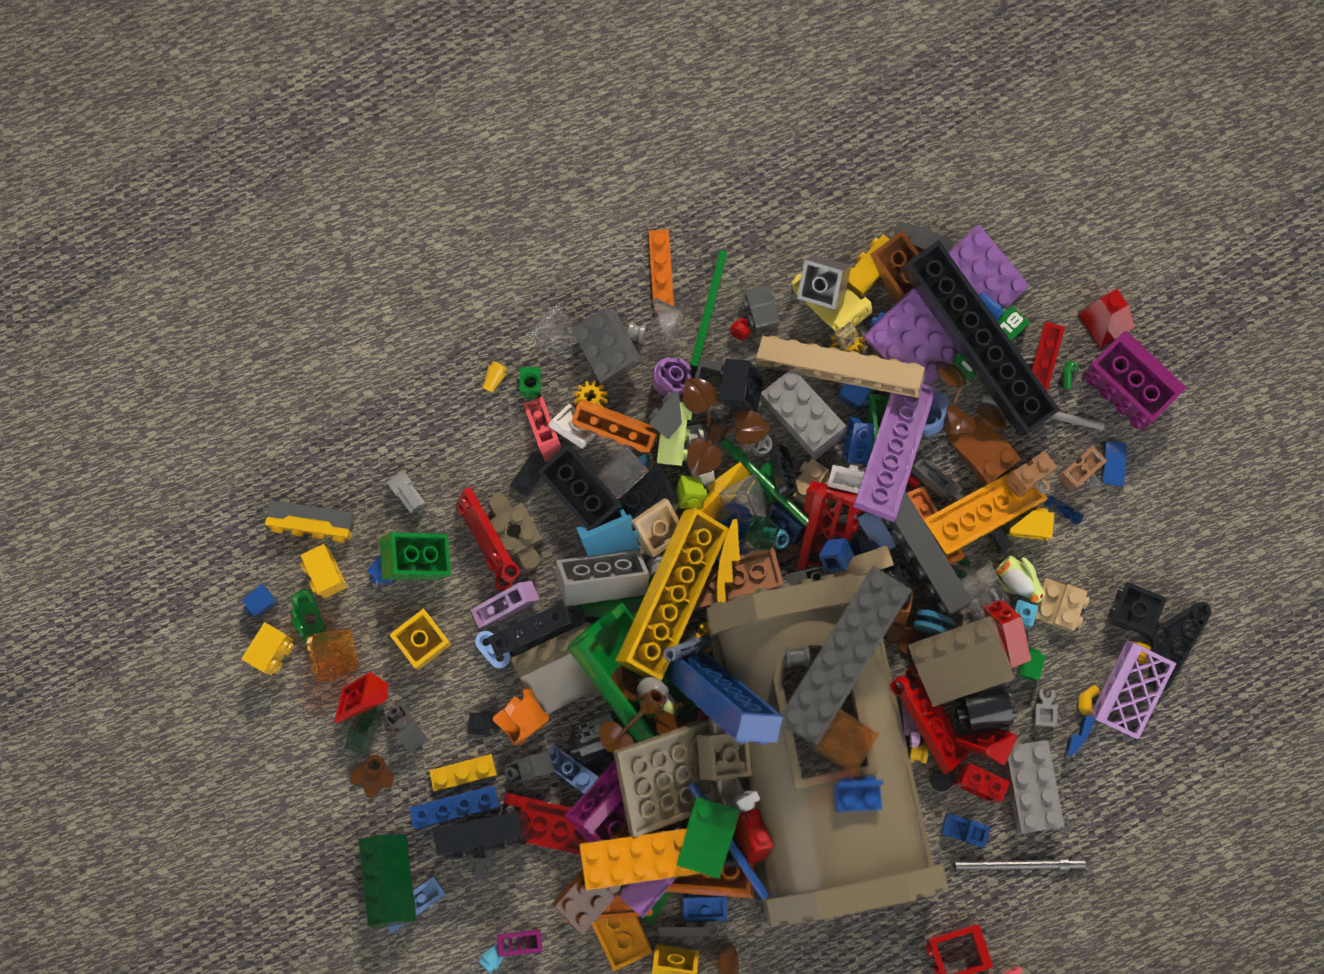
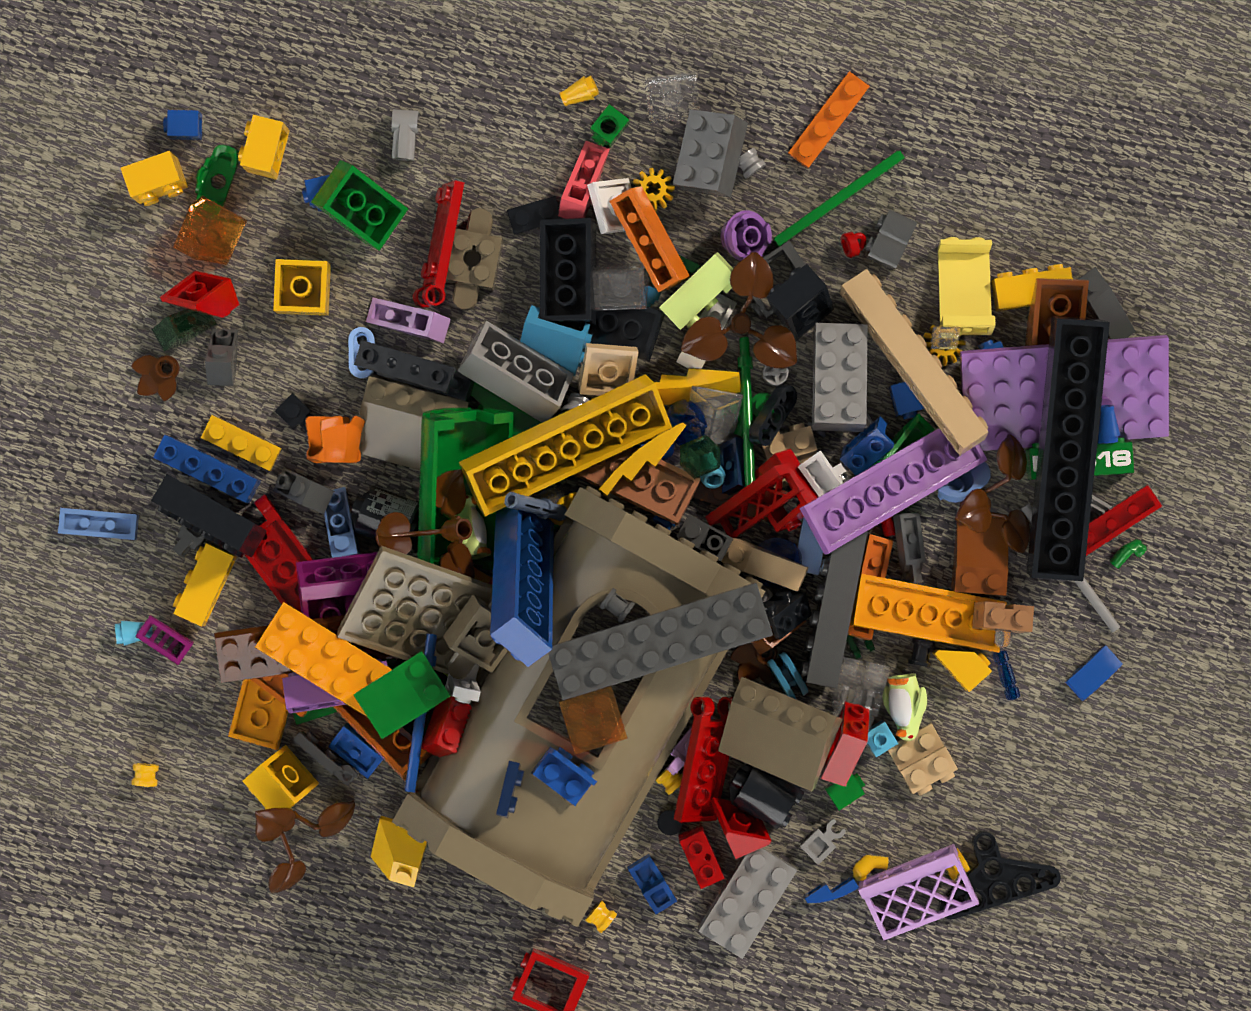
camera: 40 degrees right, 10 degrees up
(310, 520) = (292, 85): piece -> none
(387, 880) = (91, 483): dark green slope -> none
(515, 884) = (204, 584): none -> yellow brick
(649, 683) = (474, 514): light grey head -> none
(668, 320) = (790, 178): clear slope -> none
(669, 416) = (703, 275): dark grey slope -> none
(690, 492) = (666, 362): lime brick -> none
(787, 949) = (397, 853): none -> yellow slope
(824, 282) = (969, 267): flat silver brick -> none
(836, 555) = (749, 538): blue brick -> none
(838, 842) = (507, 801): none -> dark blue plate
(954, 879) = (601, 916): none -> yellow wheel
(1062, 864) = (713, 989): flat silver bar -> none
(1083, 471) = (1056, 657): medium nougat piece -> none
(1107, 318) = (1214, 532): red slope -> none
(1133, 381) = (1197, 617): magenta brick -> none
(1137, 609) = (988, 824): black plate -> none

